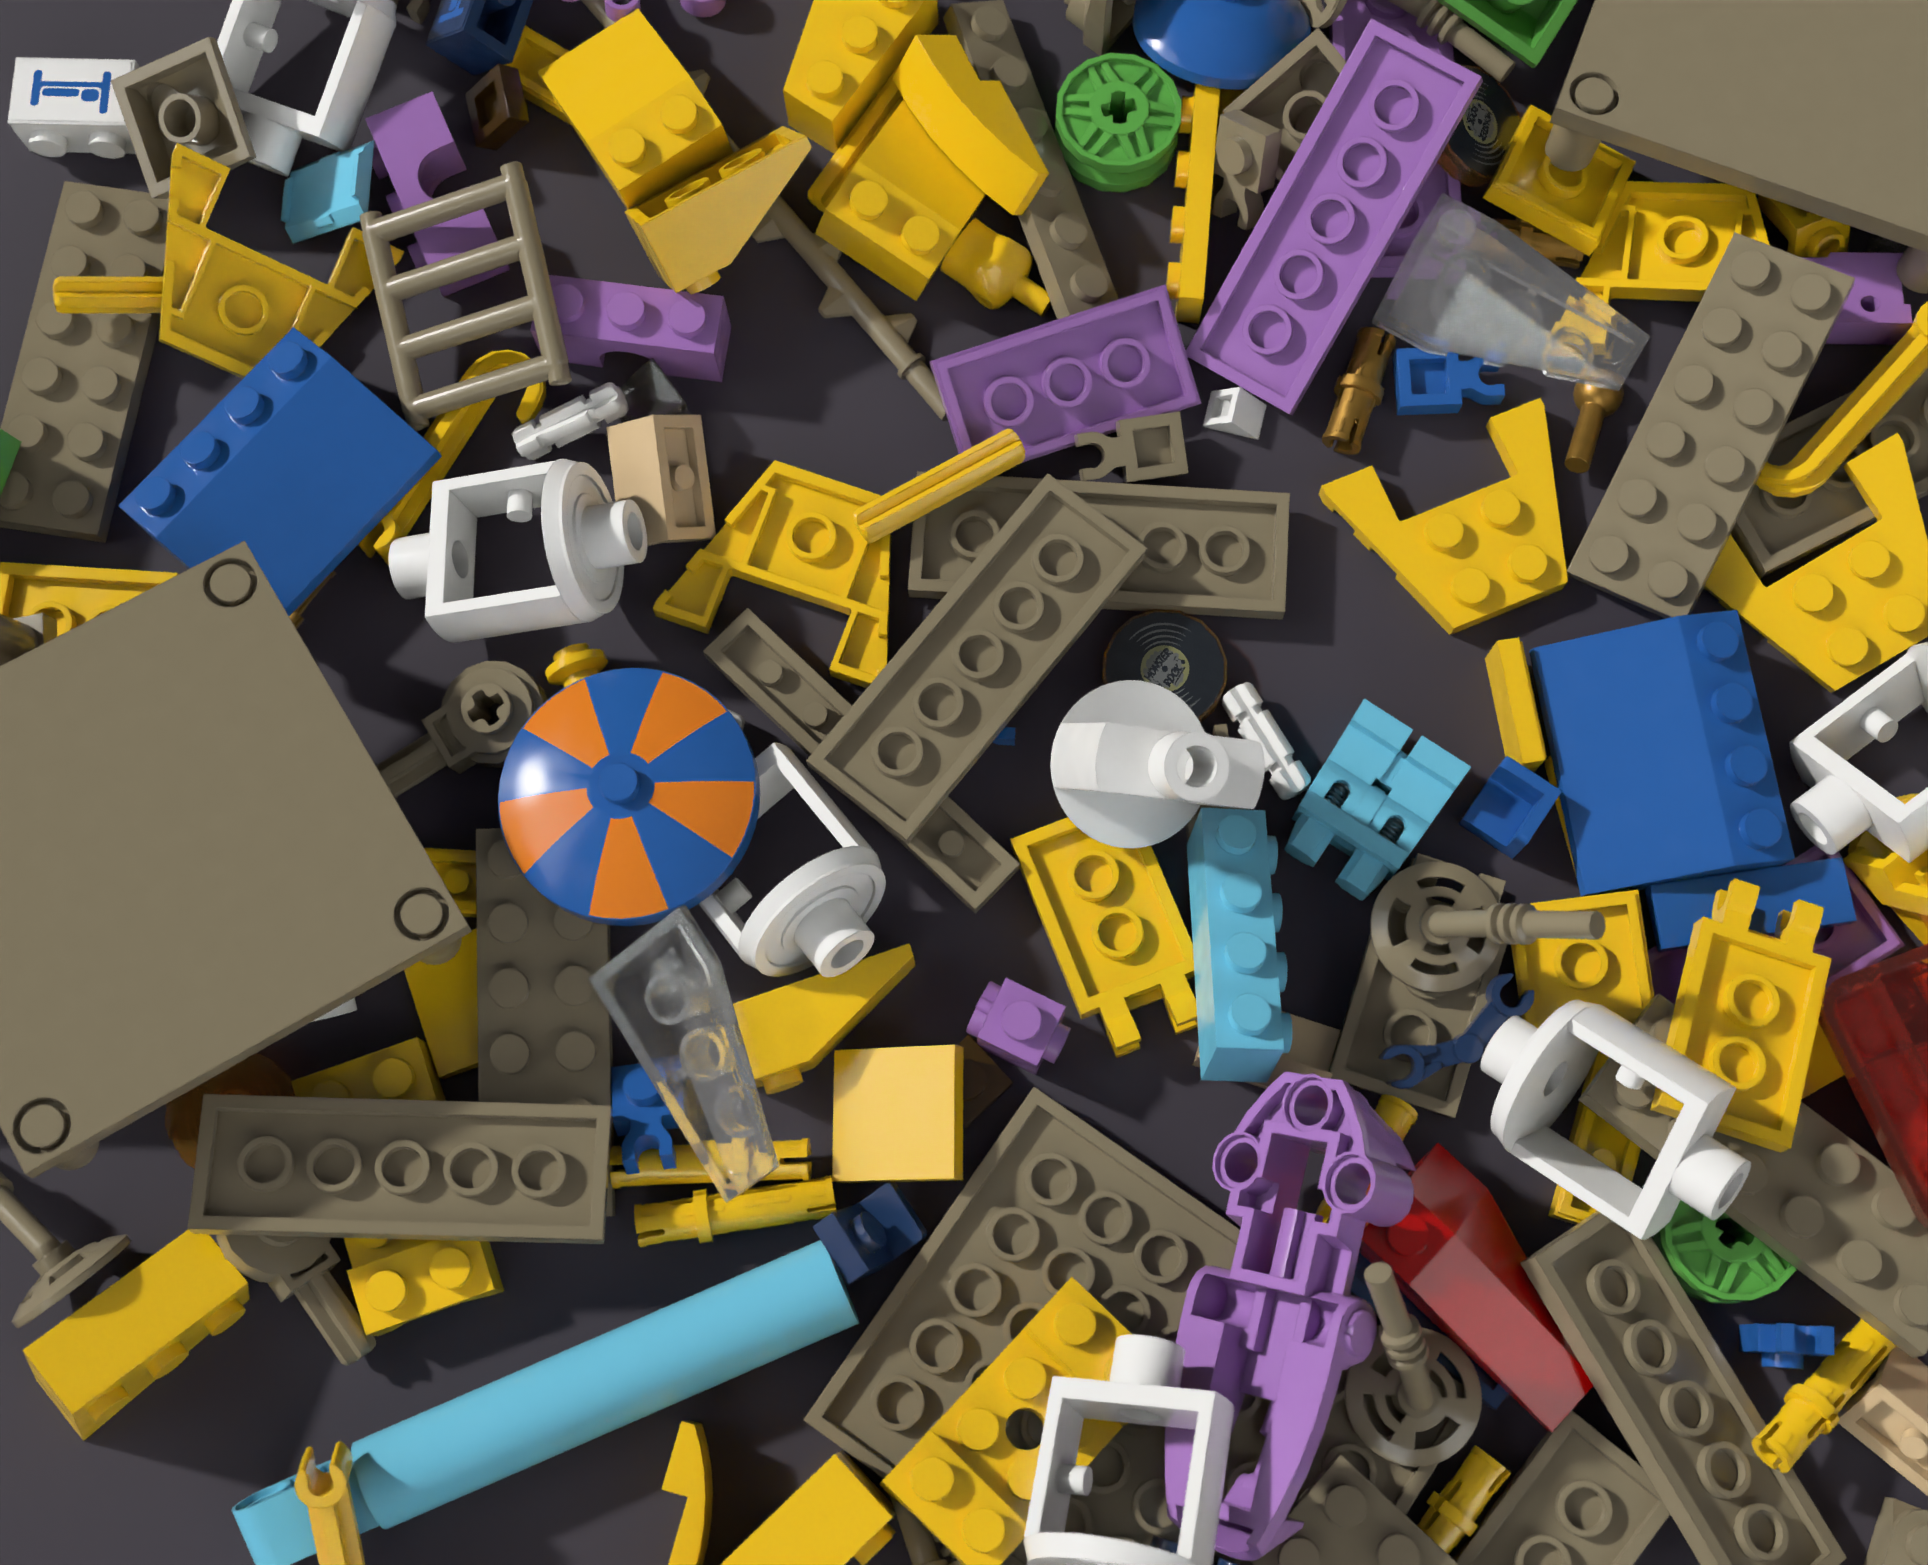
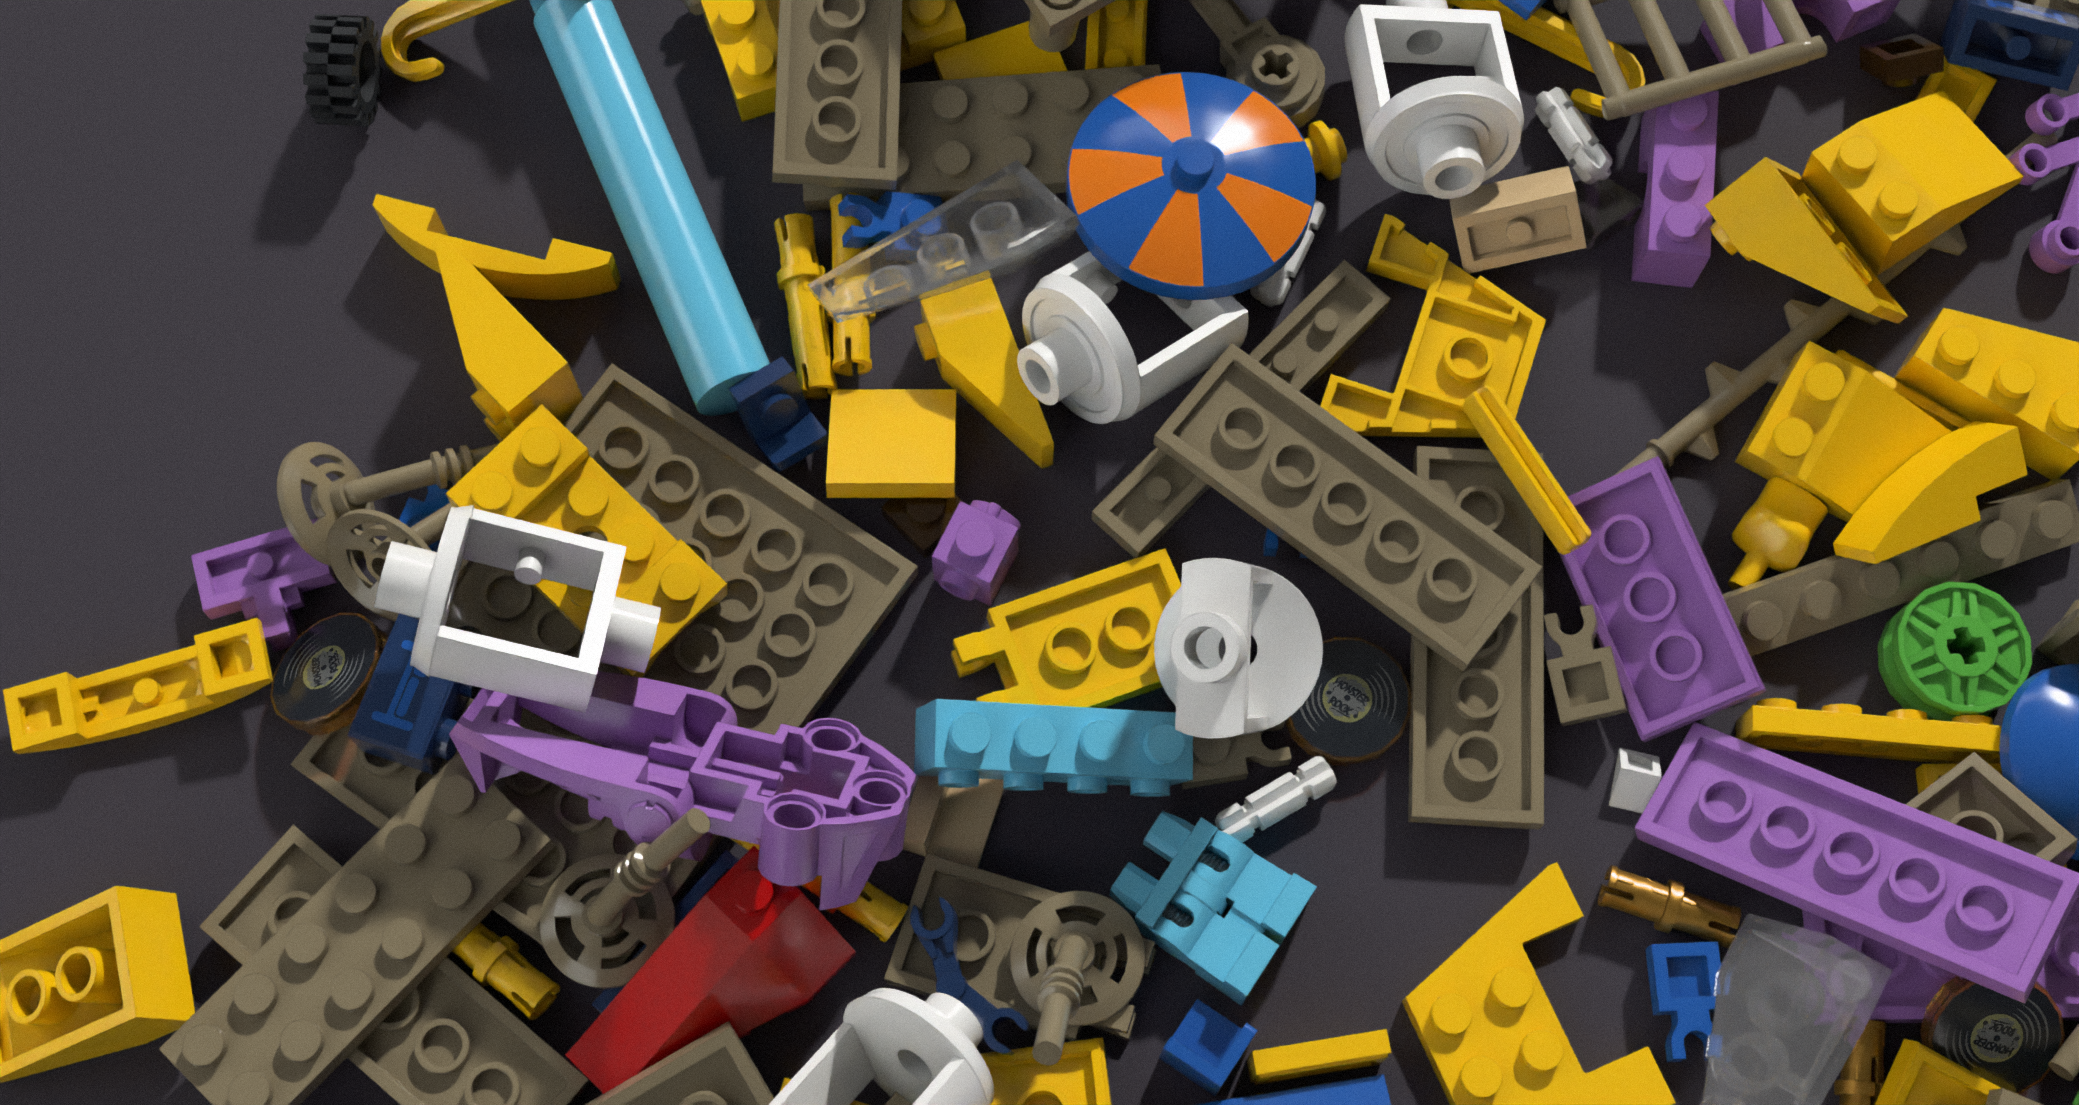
camera: 85 degrees right, 5 degrees down
(1248, 162) = (1919, 773): dark tan plate -> none

